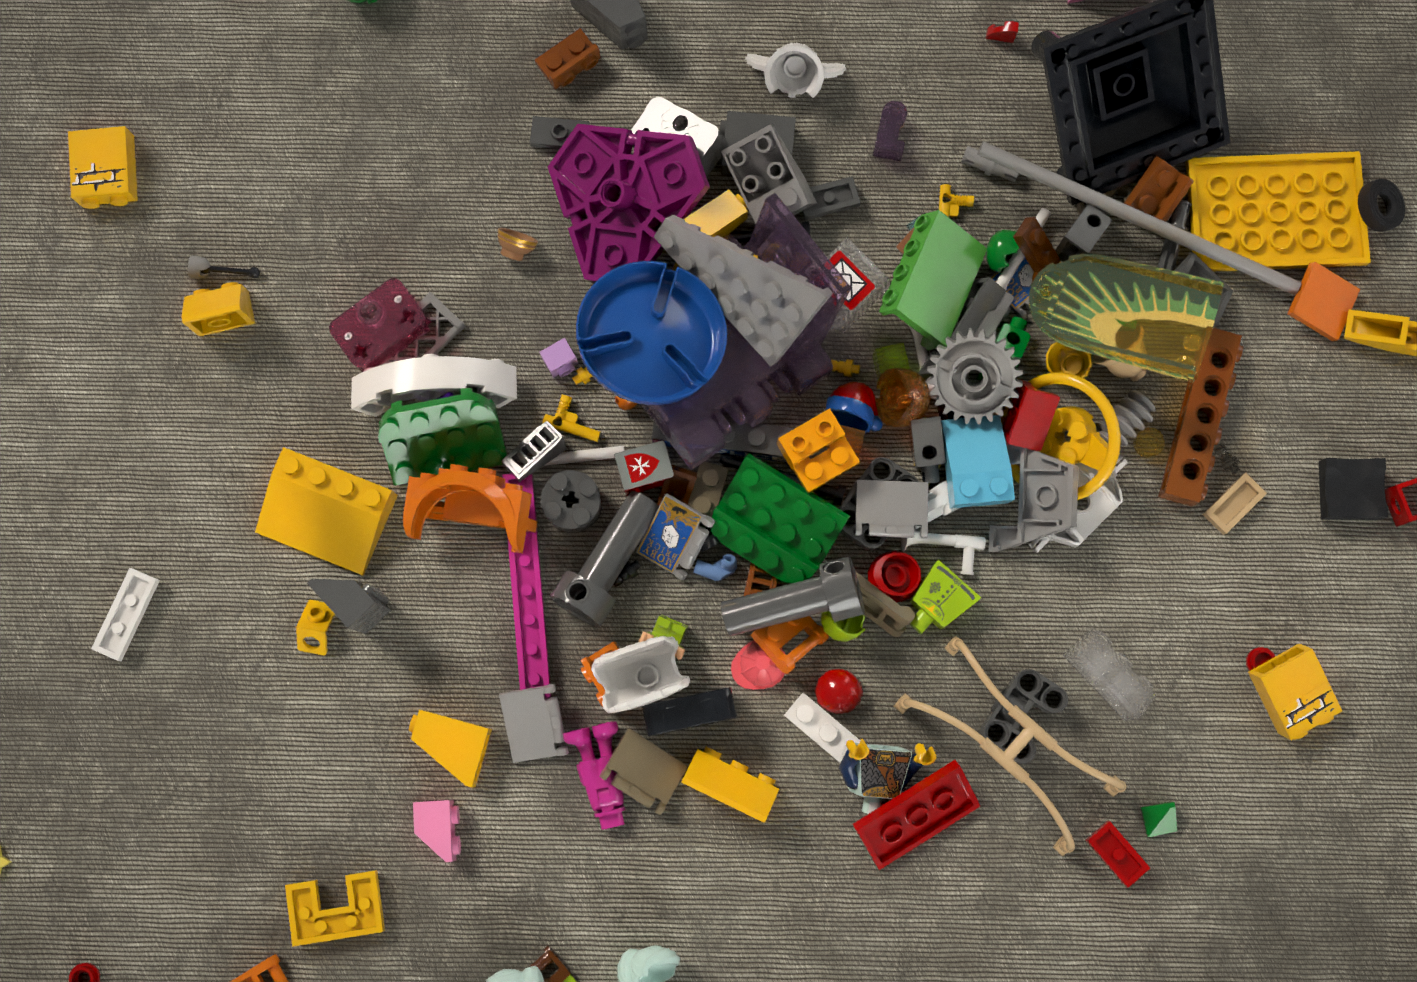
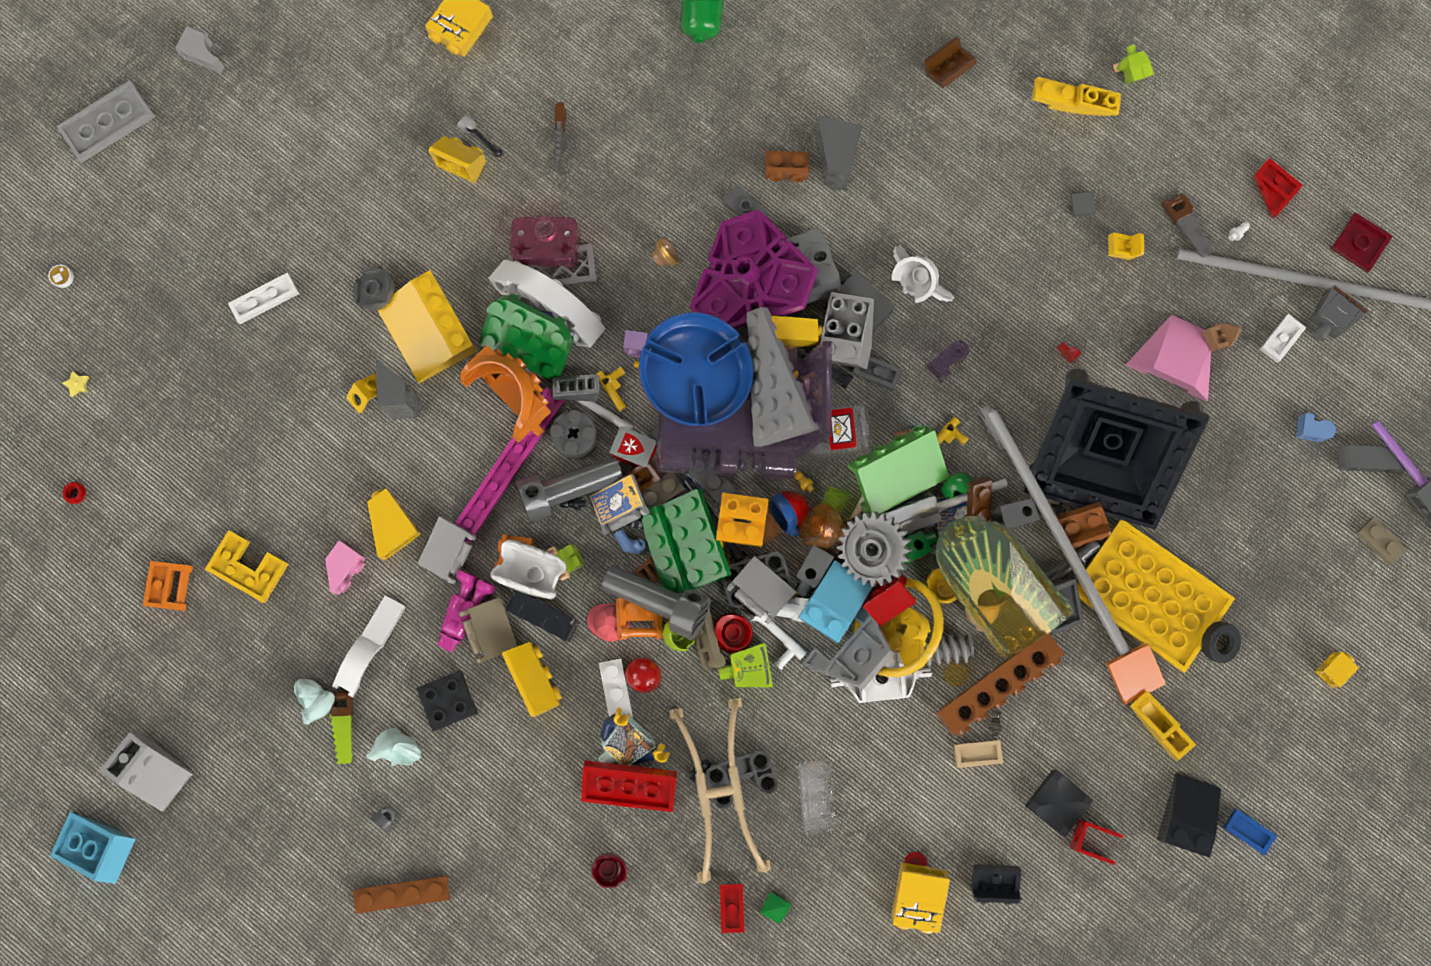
camera: 35 degrees right, 0 degrees up
(237, 513) = (374, 289): none -> dark grey tile
(301, 198) = (560, 125): none -> piece
(531, 886) = (368, 645): none -> white piece
(659, 878) = (447, 700): none -> black brick
(965, 916) = (609, 870): none -> dark red hair
(973, 746) = (705, 764): none -> black piece
(1356, 618) = (996, 884): none -> black bracket

